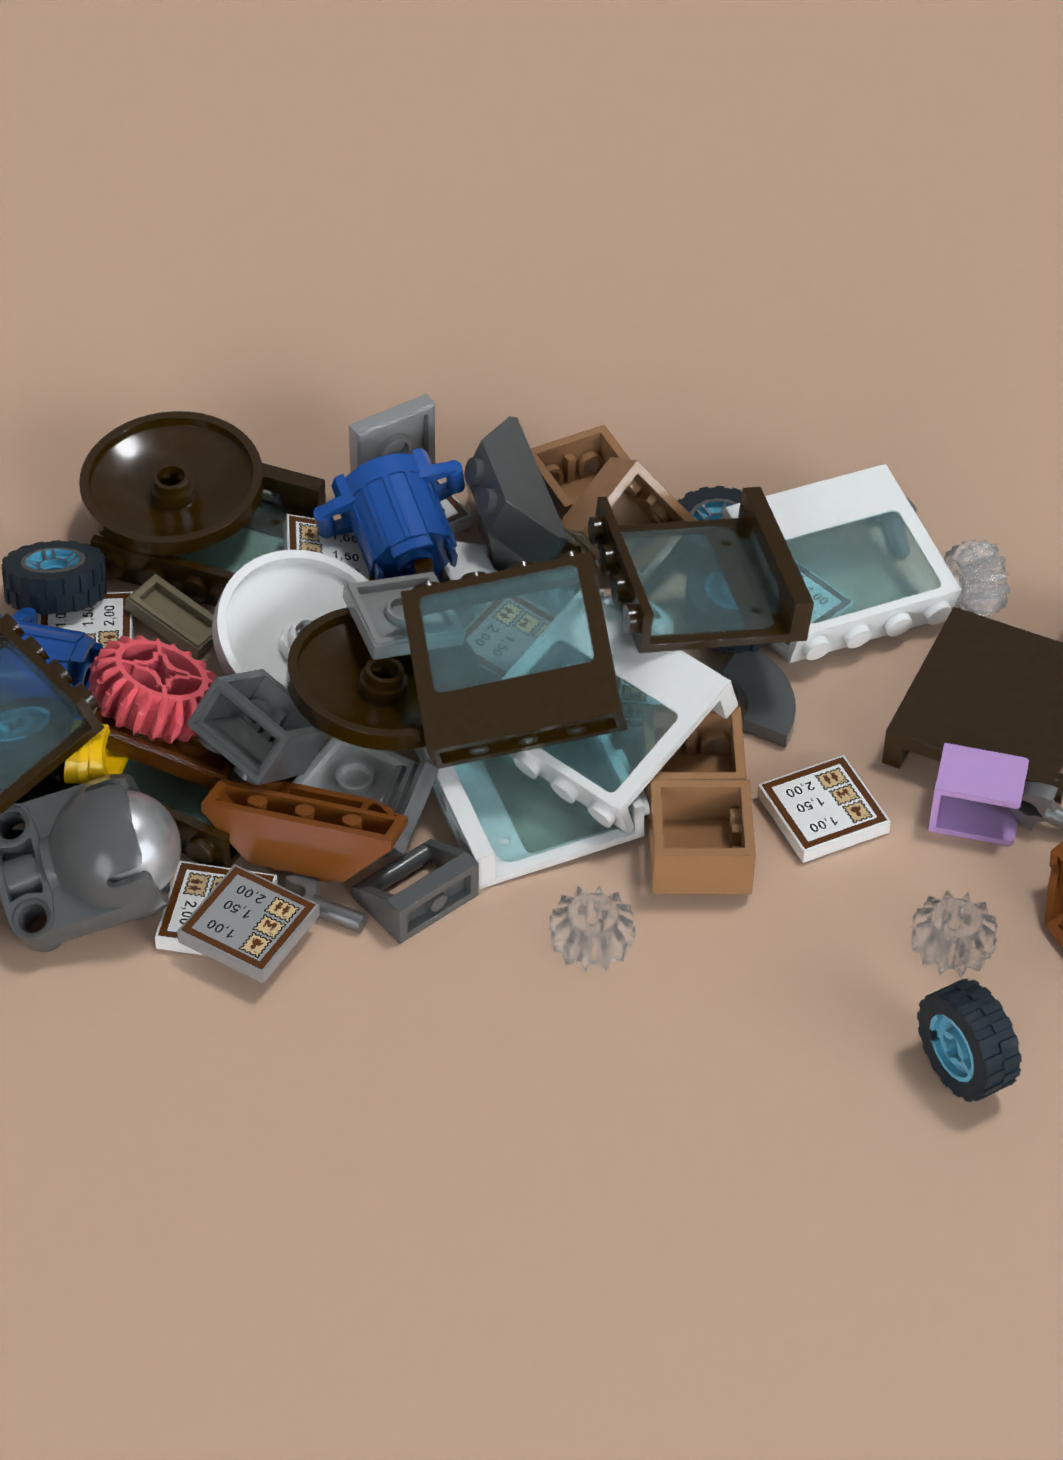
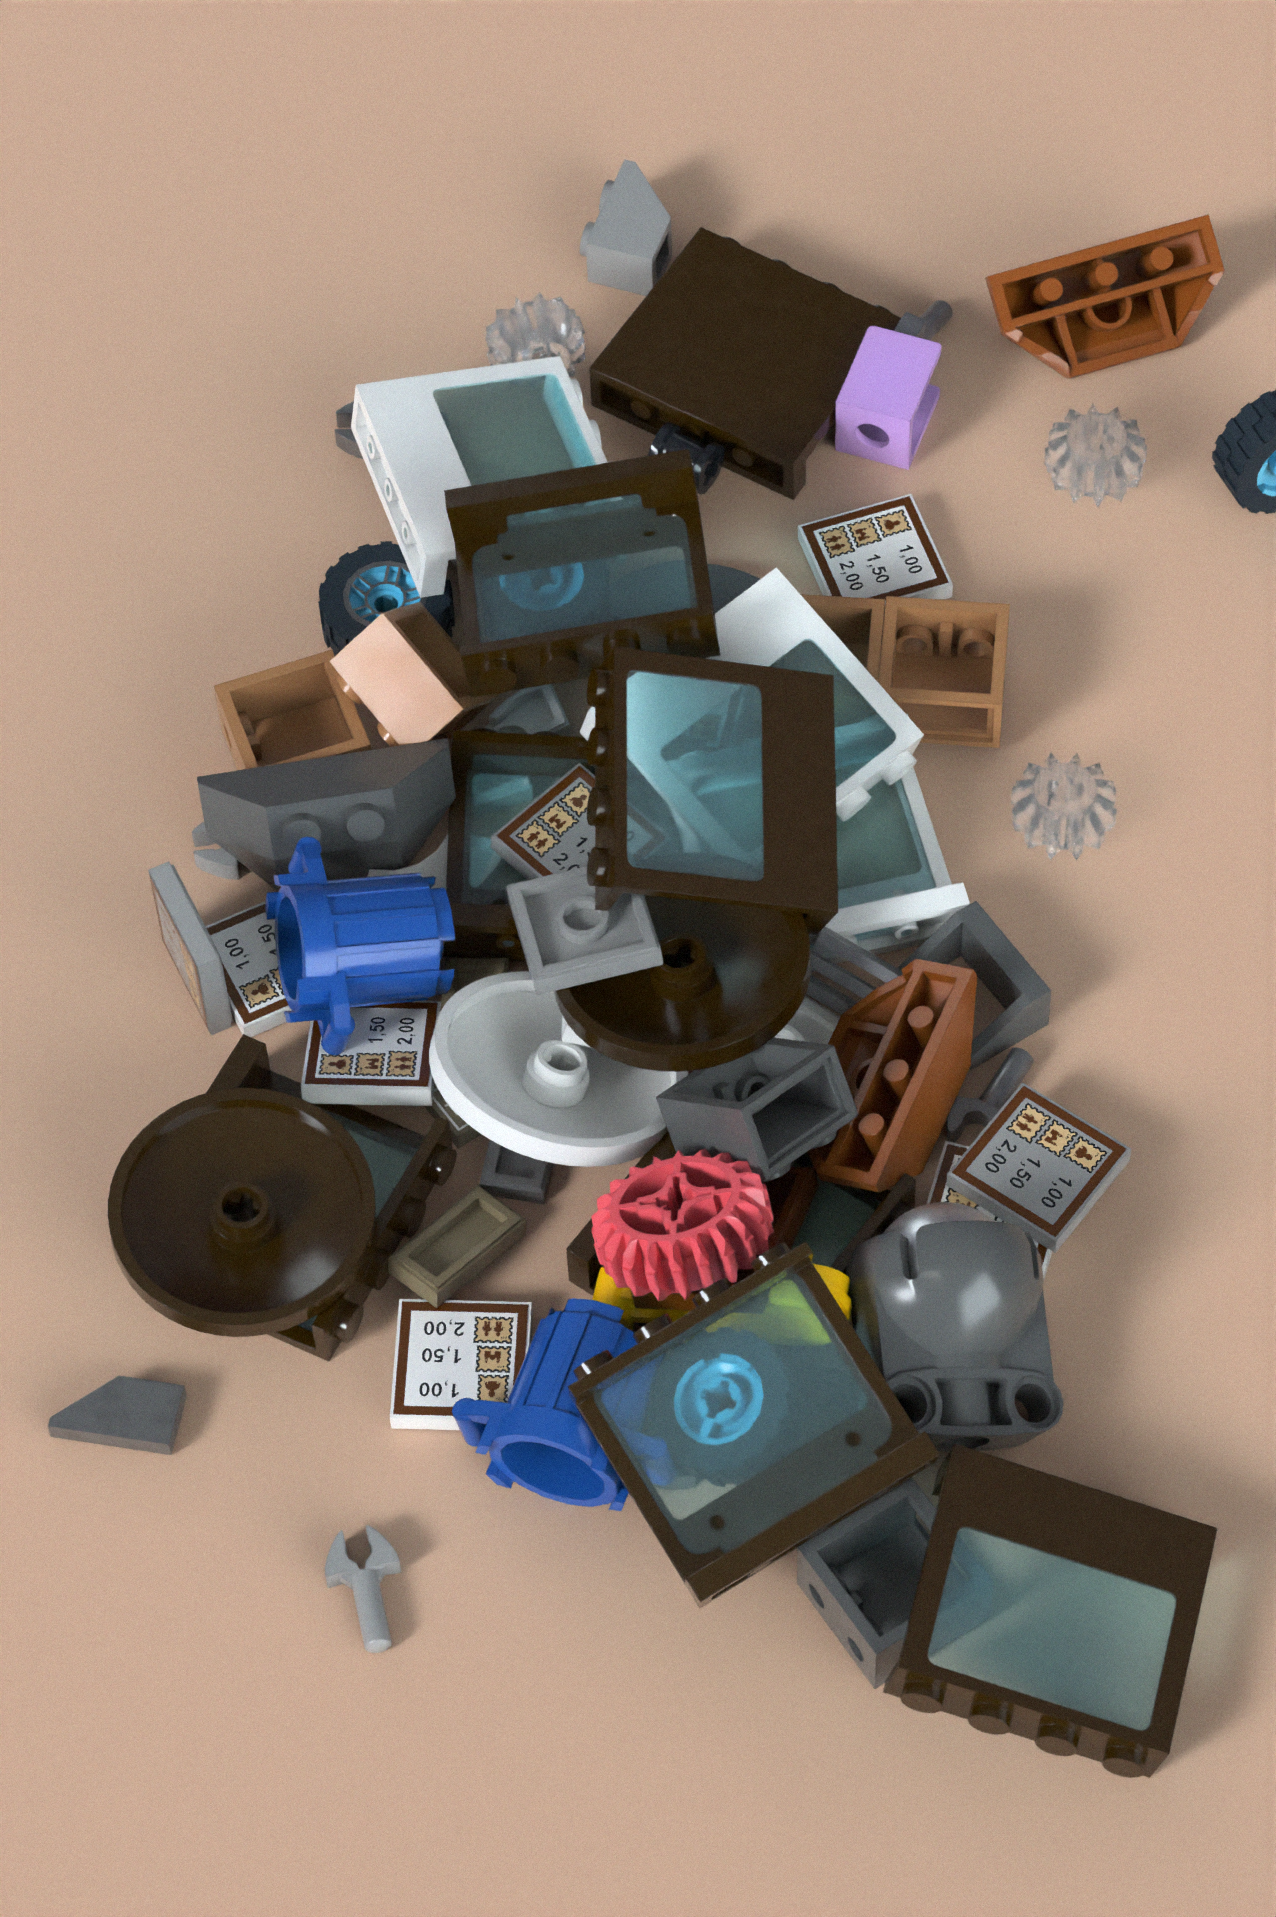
camera: 80 degrees left, 10 degrees up
(46, 477) = (125, 1415): none -> flat silver tile
(54, 577) = (358, 1358): black wheel -> none
(896, 678) = (706, 459): none -> black bush

